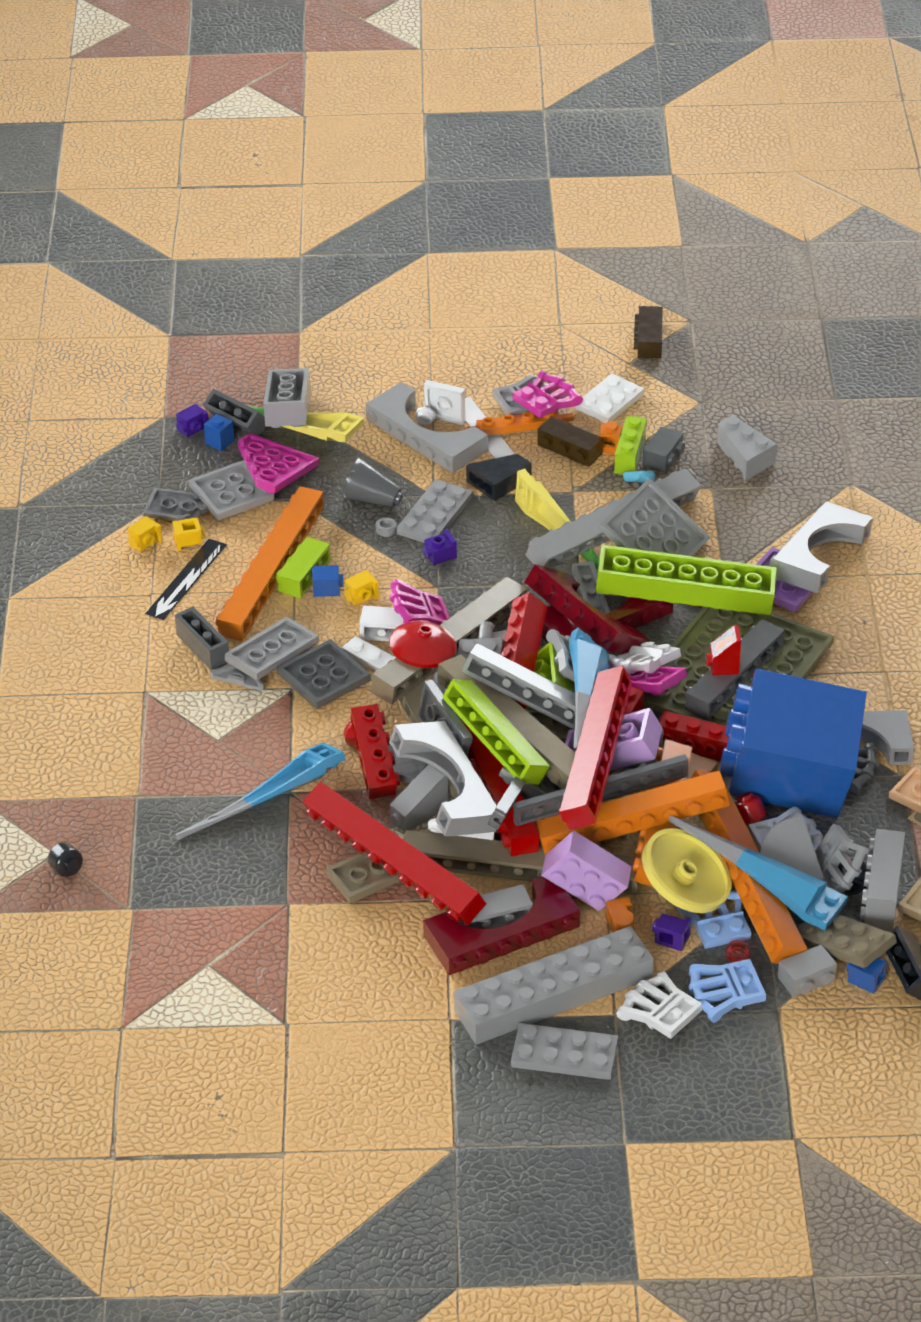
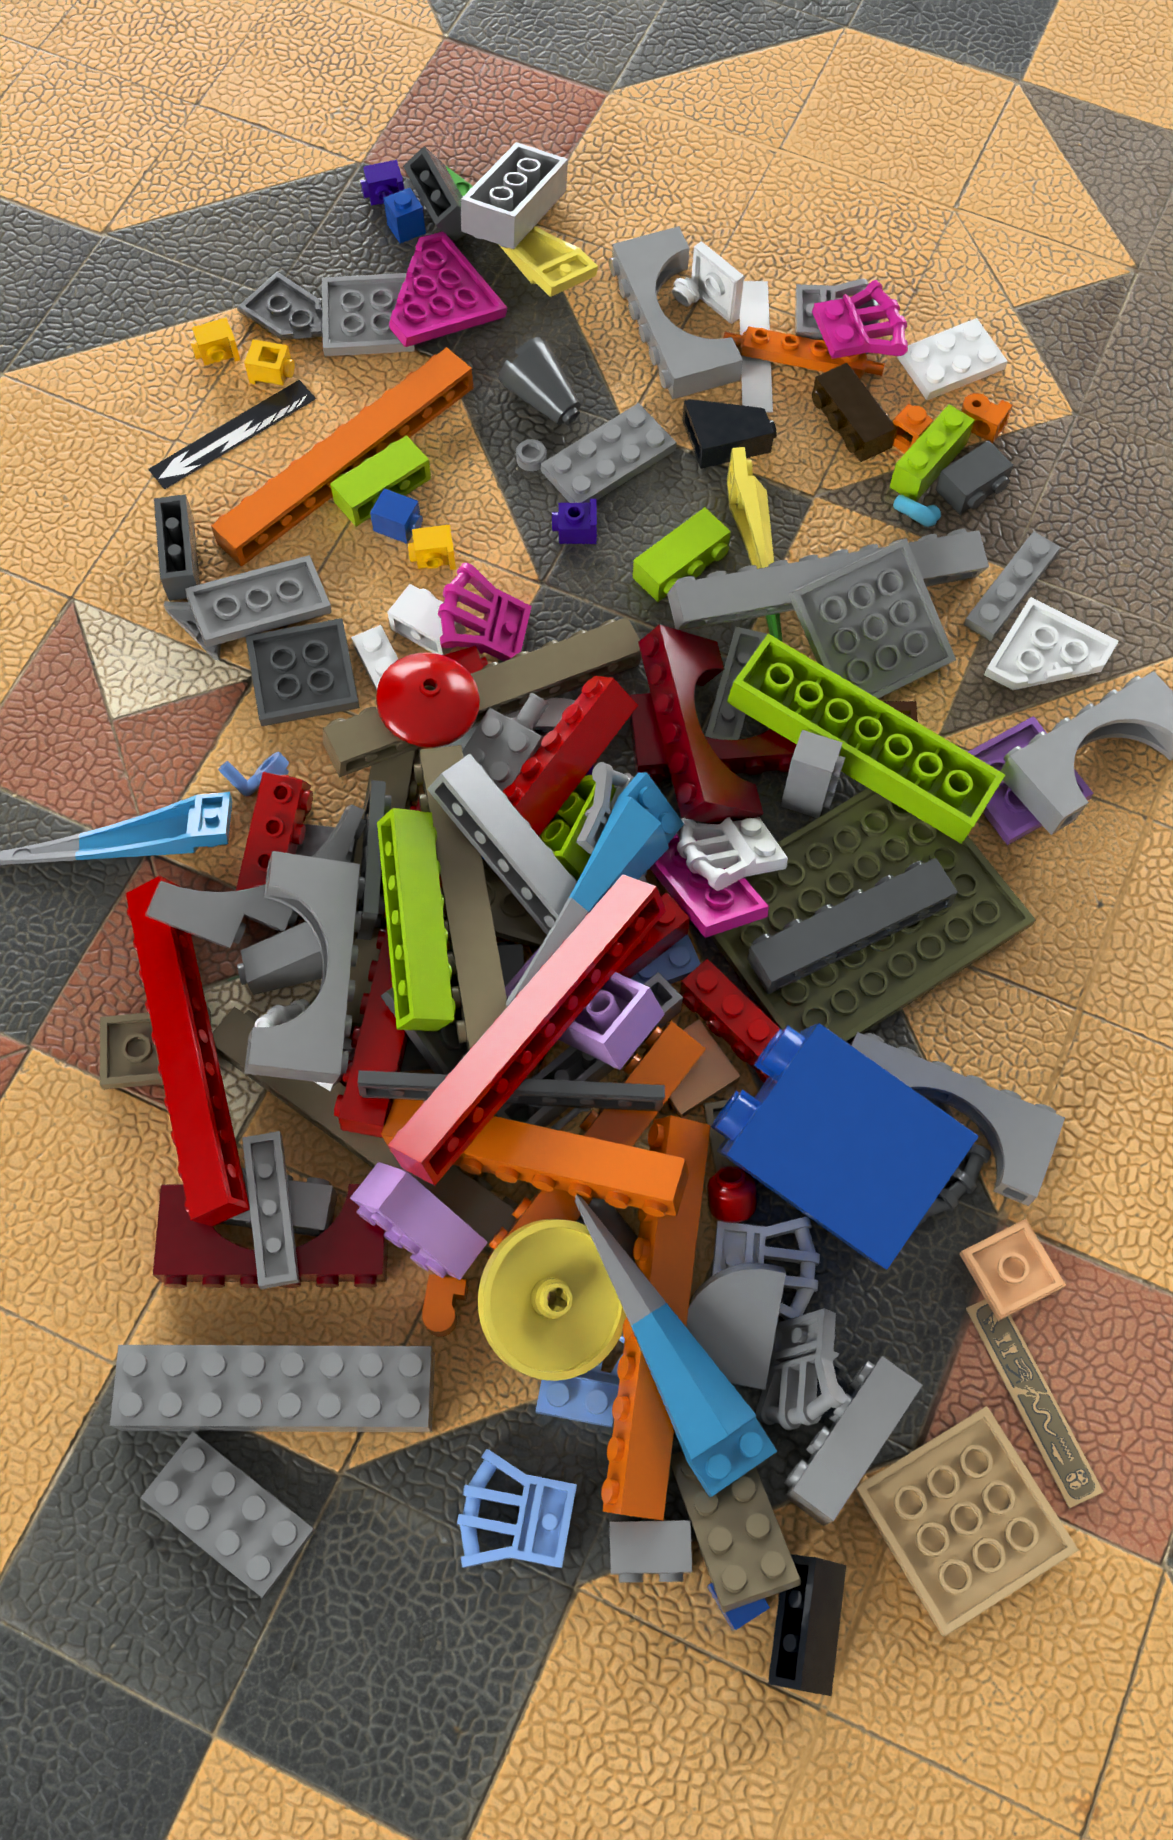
camera: 25 degrees right, 25 degrees up
(337, 727) = (274, 764): none -> medium blue plate
(376, 780) = (219, 914): none -> light grey arch
(499, 902) = (270, 1210): none -> light grey plate
(506, 803) = (350, 1064): piece -> none
(513, 542) = (681, 554): none -> lime brick
(648, 332) = (1066, 268): dark brown brick -> none
(653, 416) = (988, 417): none -> orange leg
(667, 607) = (813, 774): none -> light grey brick
(670, 1015) = (414, 1526): white plate -> none
(672, 931) = (494, 1371): dark purple brick -> none
(718, 494) = (1012, 586): none -> light grey plate
(725, 653) = (835, 912): red slope -> none
(737, 951) = (576, 1449): clear red tile -> none
(746, 446) = (1093, 521): light grey wedge -> none
(759, 514) = (1048, 648): none -> white plate

